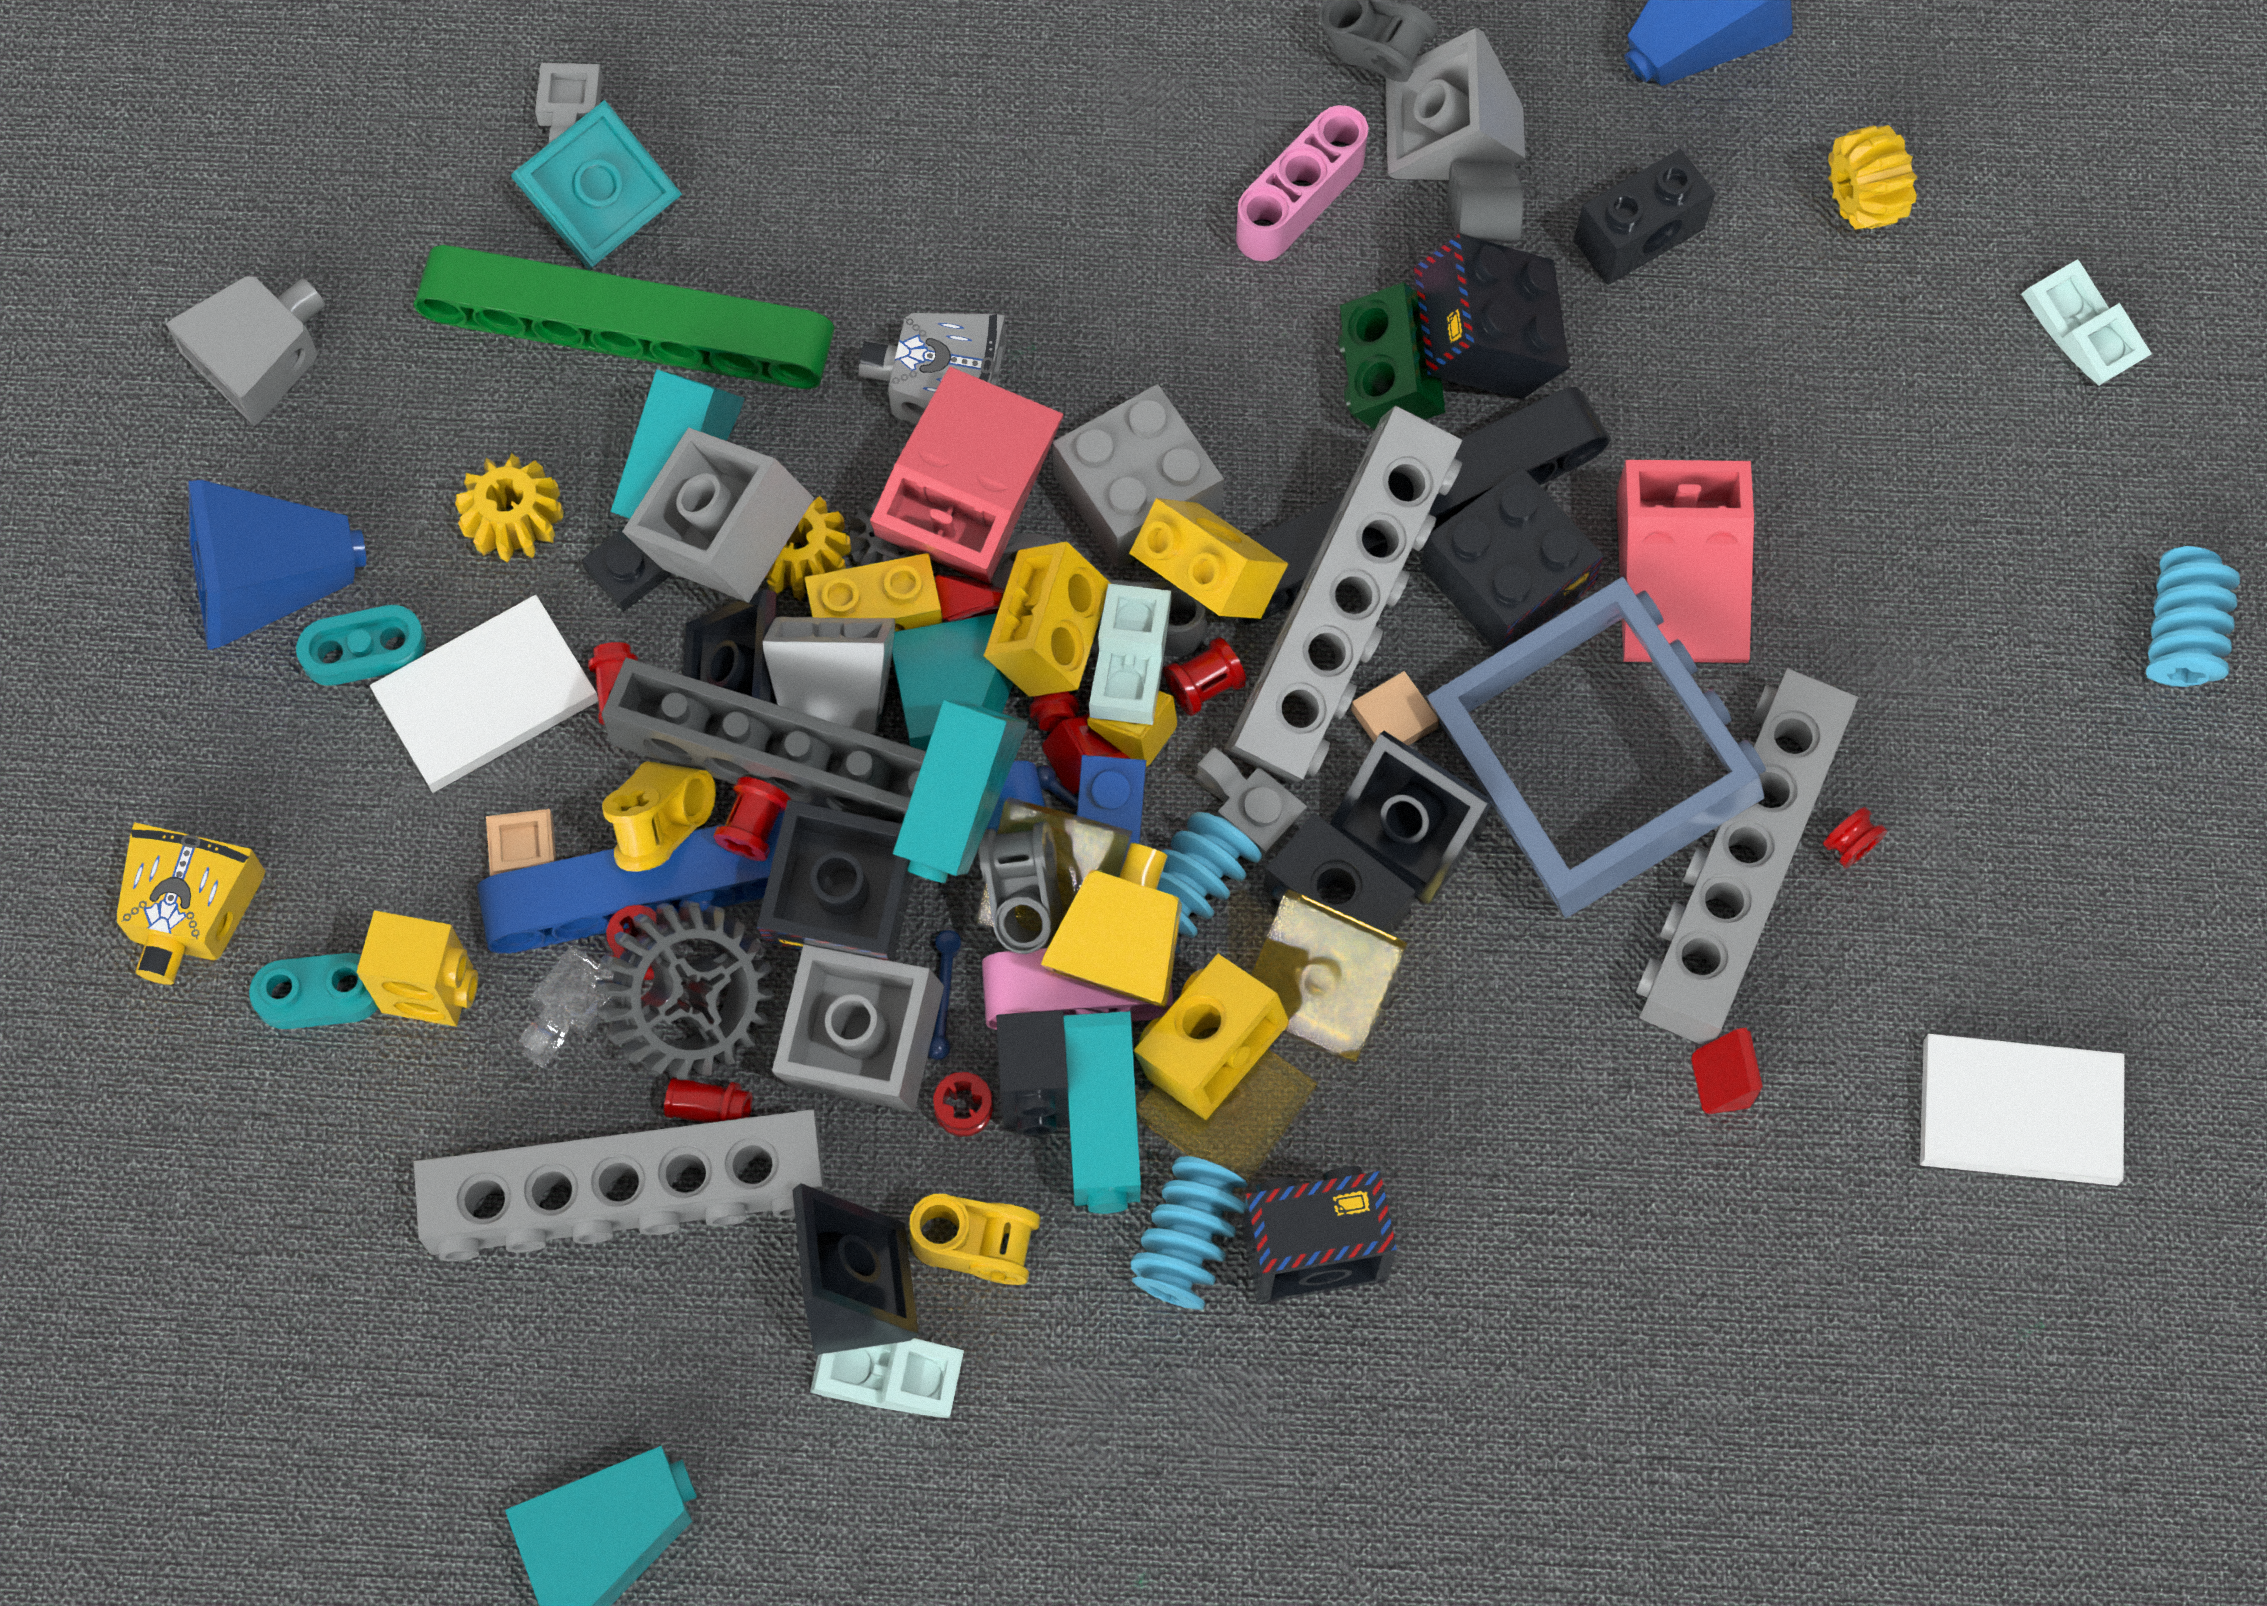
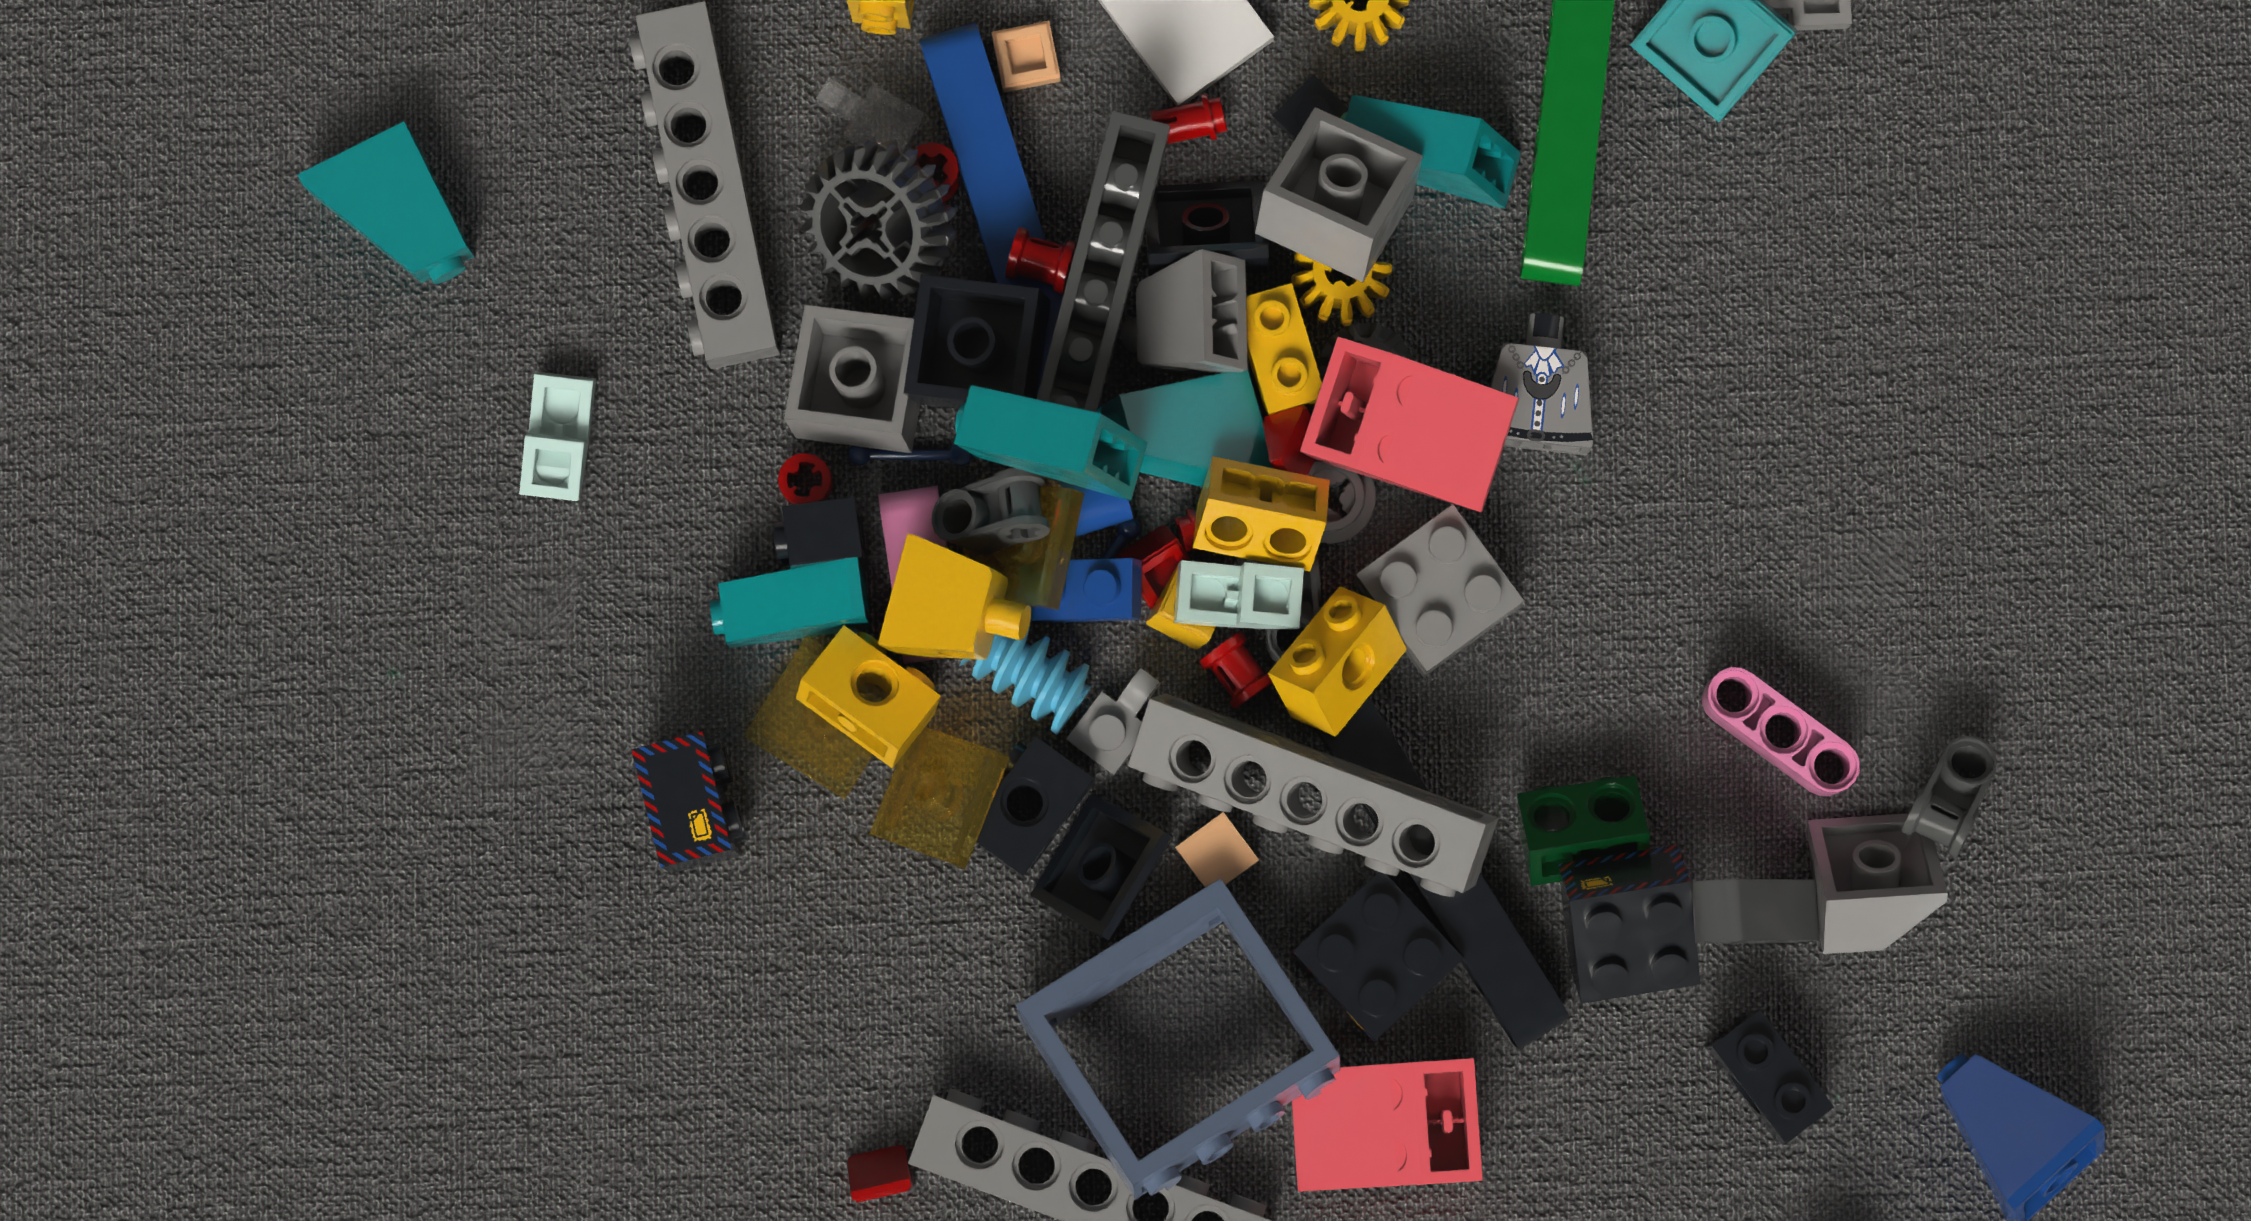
camera: 90 degrees right, 15 degrees up
(657, 812) = (1050, 173): yellow piece -> none
(706, 1101) = (787, 255): red pin -> none
(852, 1273) = (633, 395): black slope -> none
(978, 1237) = (677, 504): yellow piece -> none
(1187, 1231) = (688, 691): medium azure piece -> none

